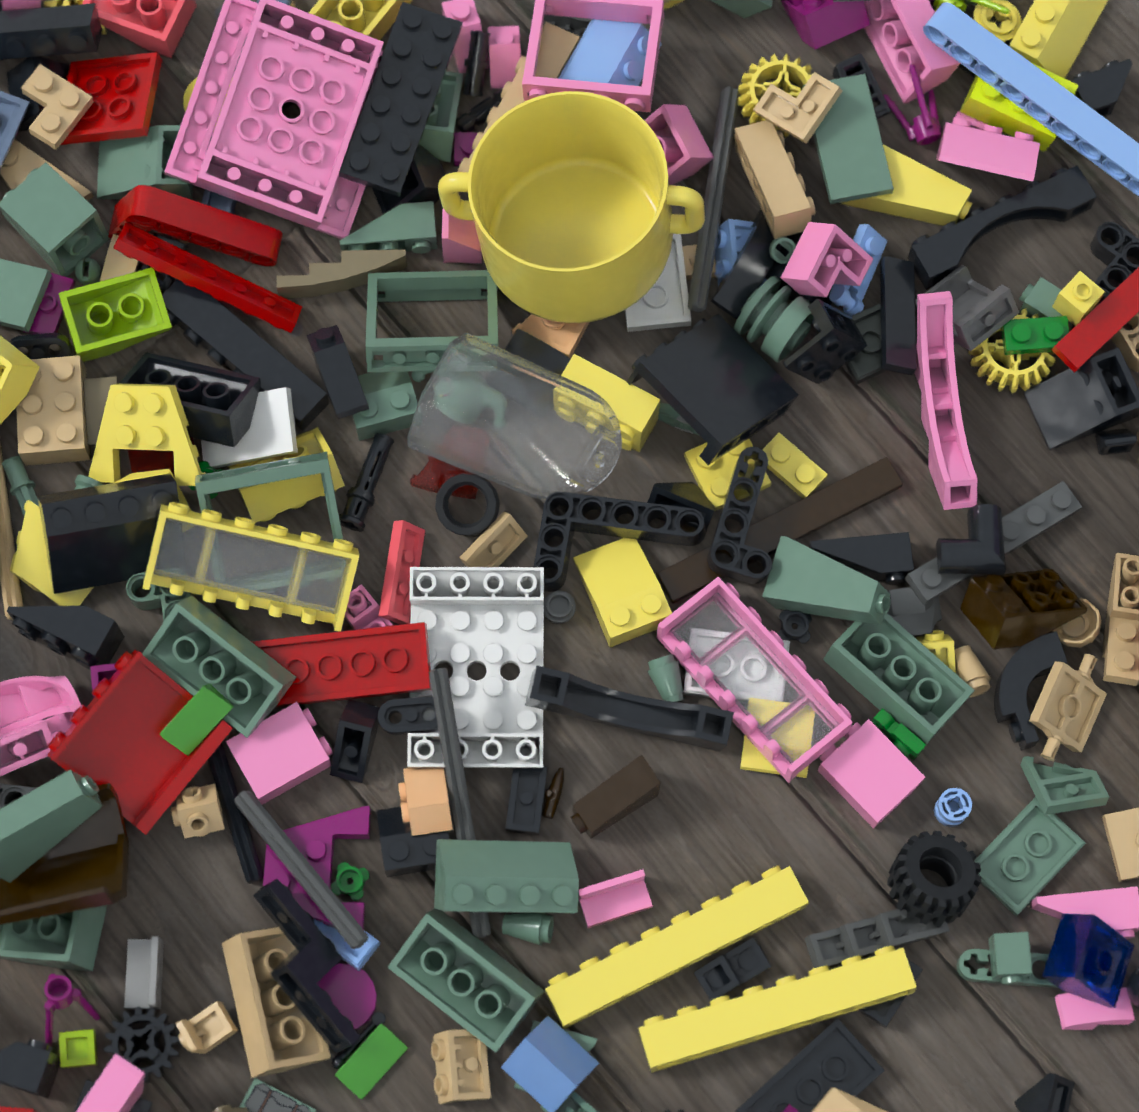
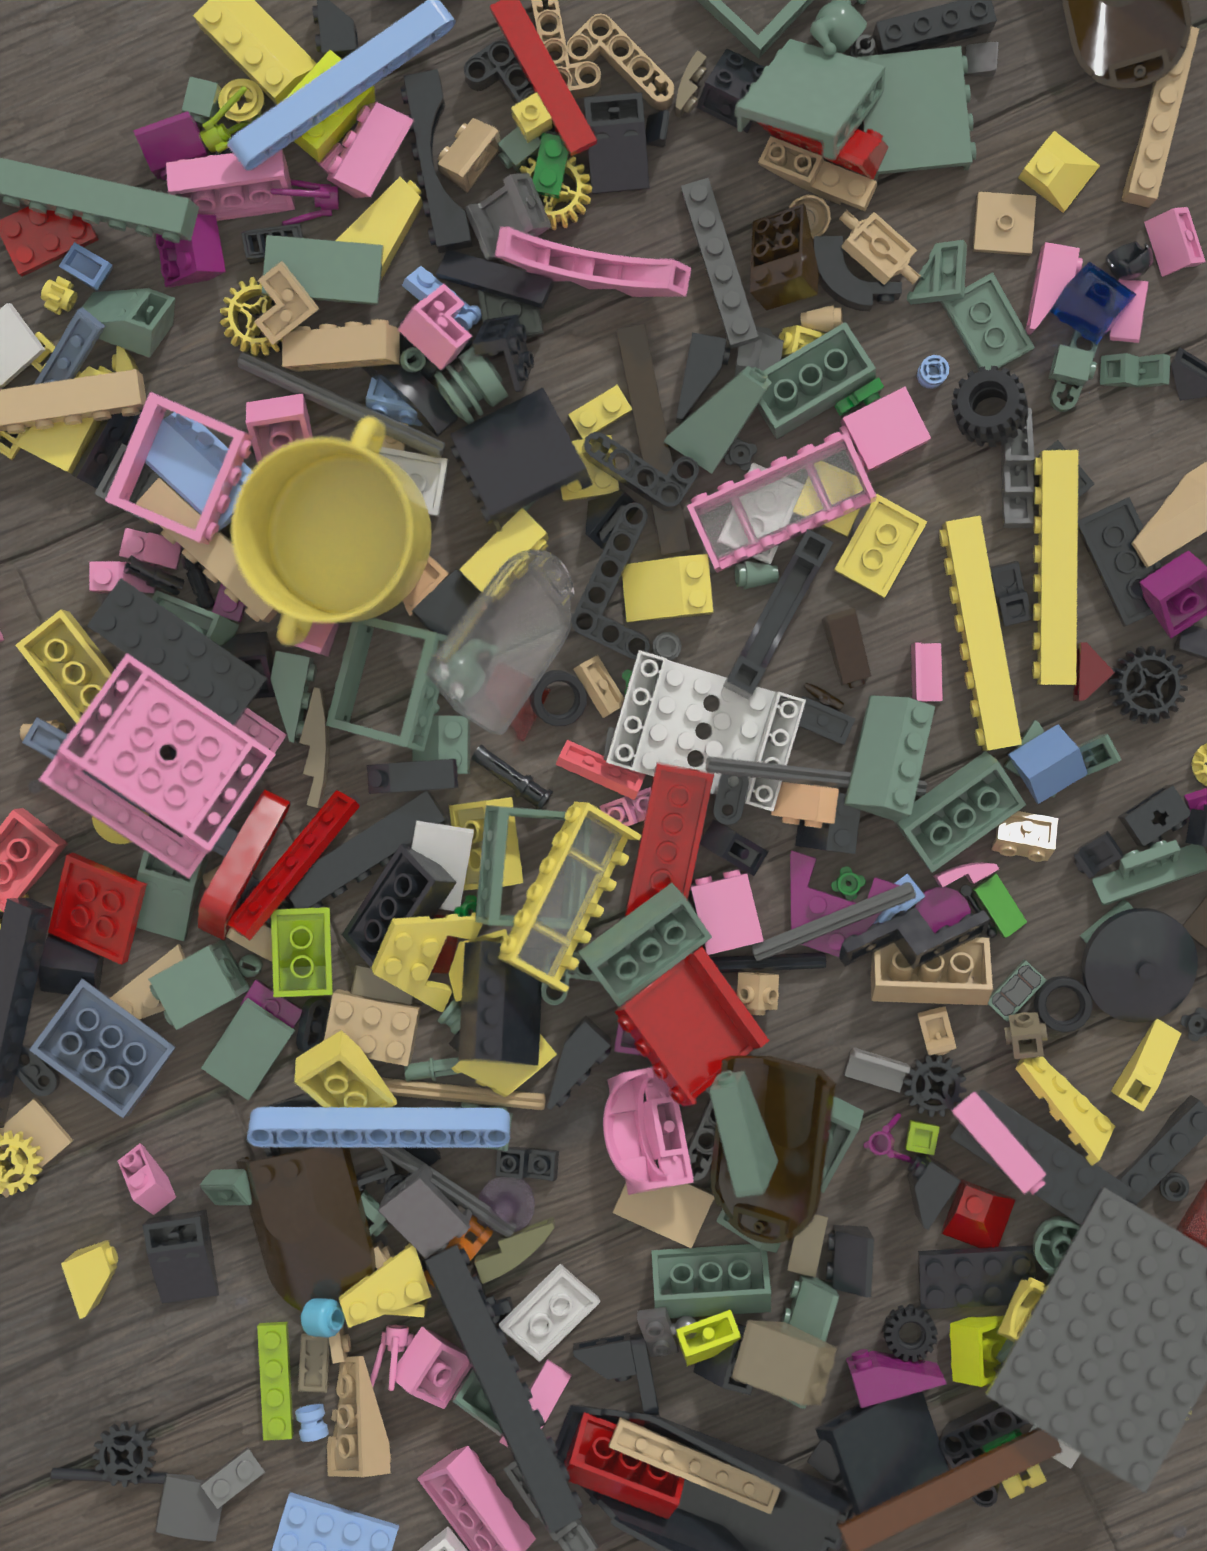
camera: 75 degrees left, 15 degrees up
(62, 102) = (96, 950): tan plate -> none
(196, 719) = (687, 974): bright green slope -> none
(401, 1017) = (973, 872): none -> bright pink slope
(529, 927) = (935, 745): sand green cone -> none
(670, 1084) = (1090, 672): none -> dark red slope
(741, 806) = (880, 546): none -> light yellow plate
(982, 551) = (731, 276): black brick -> none
(1019, 255) = (469, 154): none -> tan slope
(1029, 1036) = (1134, 371): none -> sand green slope

